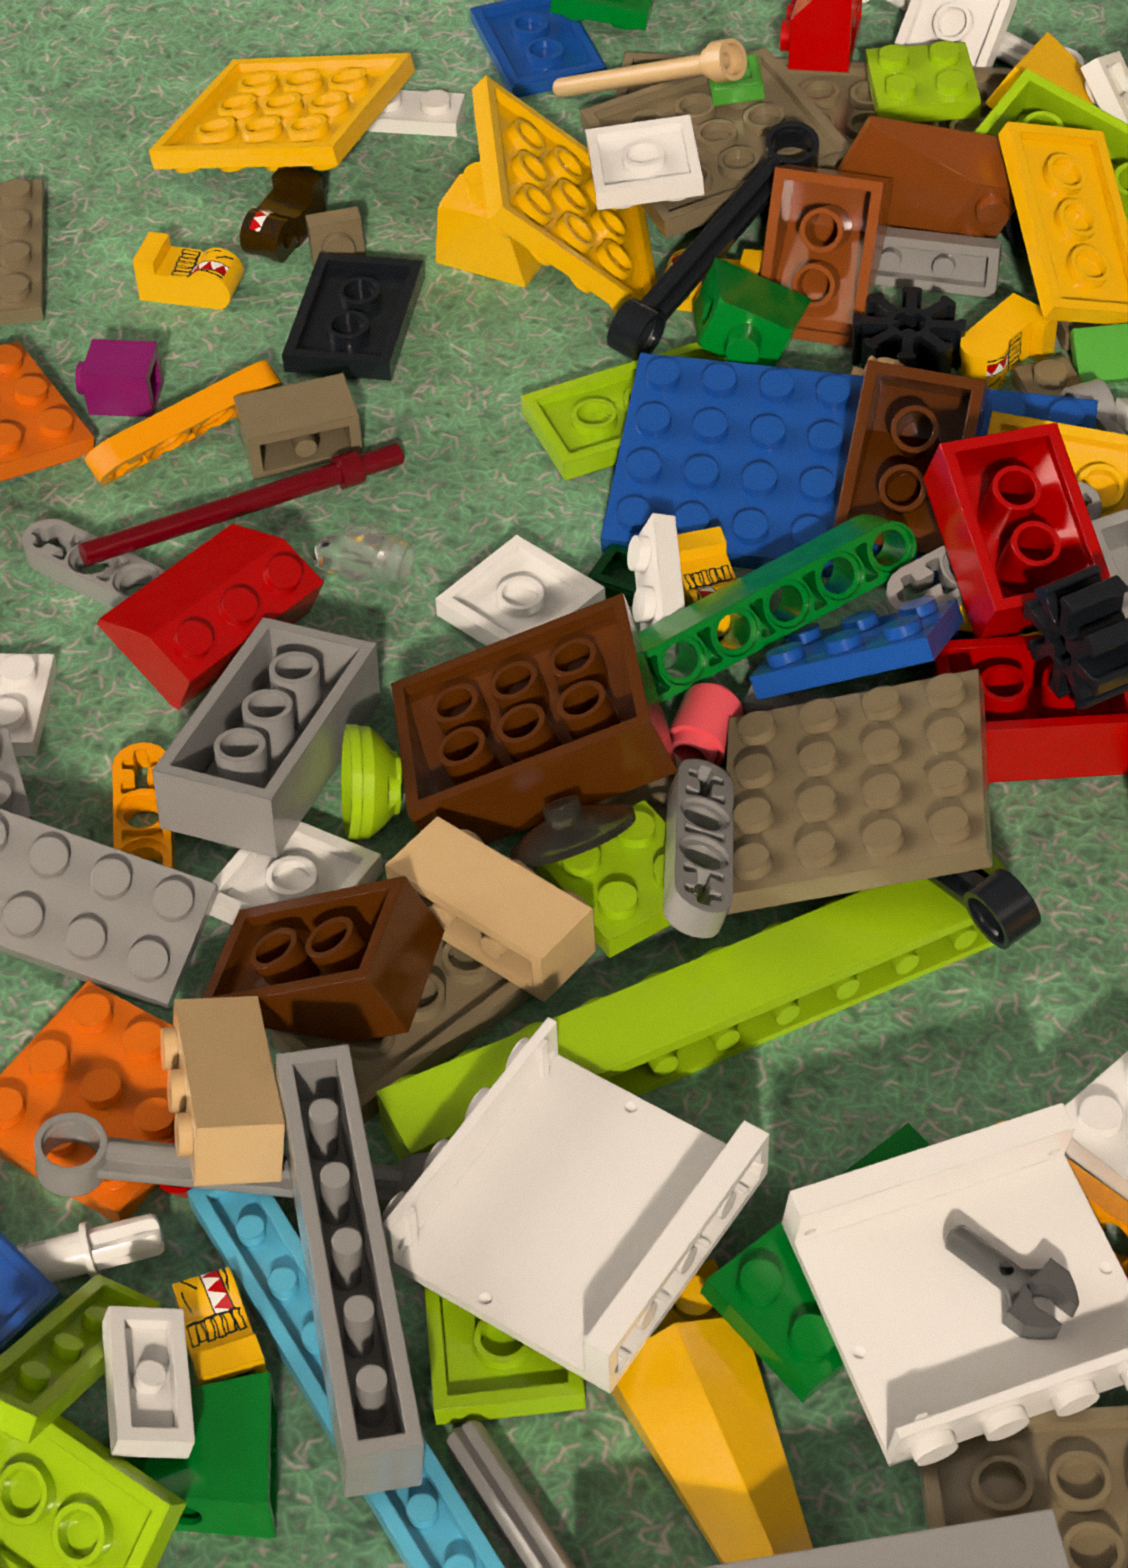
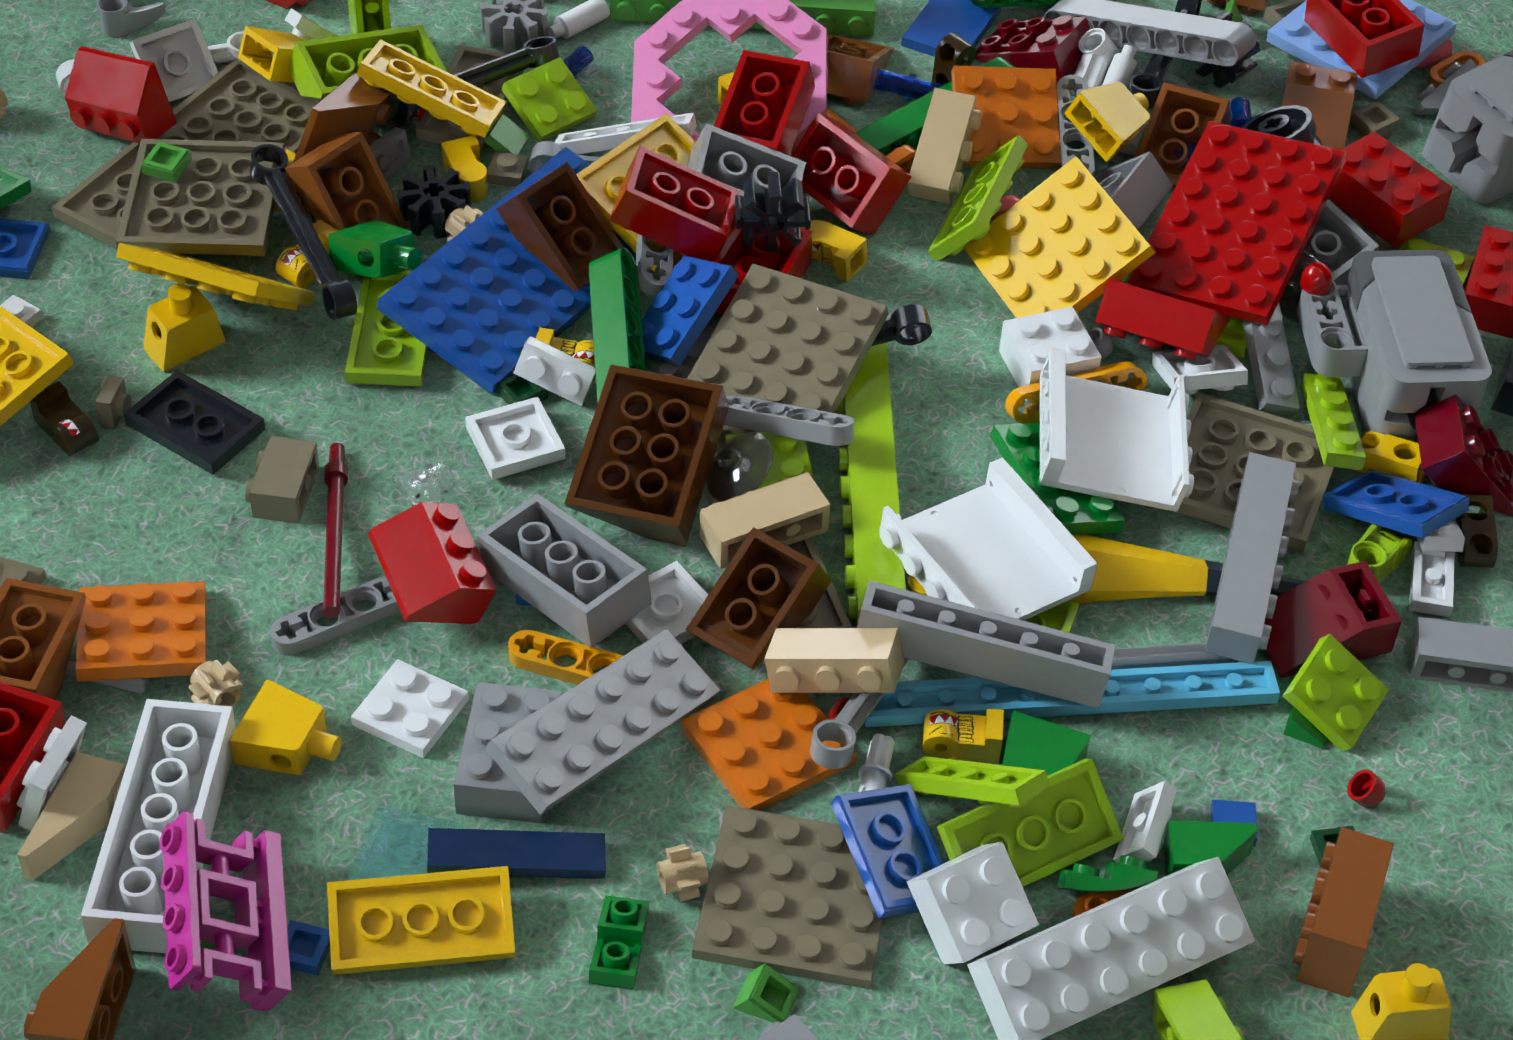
camera: 70 degrees left, 0 degrees up
(120, 378) = (163, 548): magenta brick -> none
(147, 1382) = (1006, 748): white plate -> none
(177, 424) = (234, 532): light orange beam -> none
(185, 274) = (80, 486): yellow leg -> none
(368, 782) = (644, 552): lime piece -> none
(644, 162) = (213, 227): white plate -> none
(720, 61) = (162, 156): tan piece -> none
(923, 82) = (218, 98): lime plate -> none
(1018, 1284) = (1122, 416): dark grey bar -> none

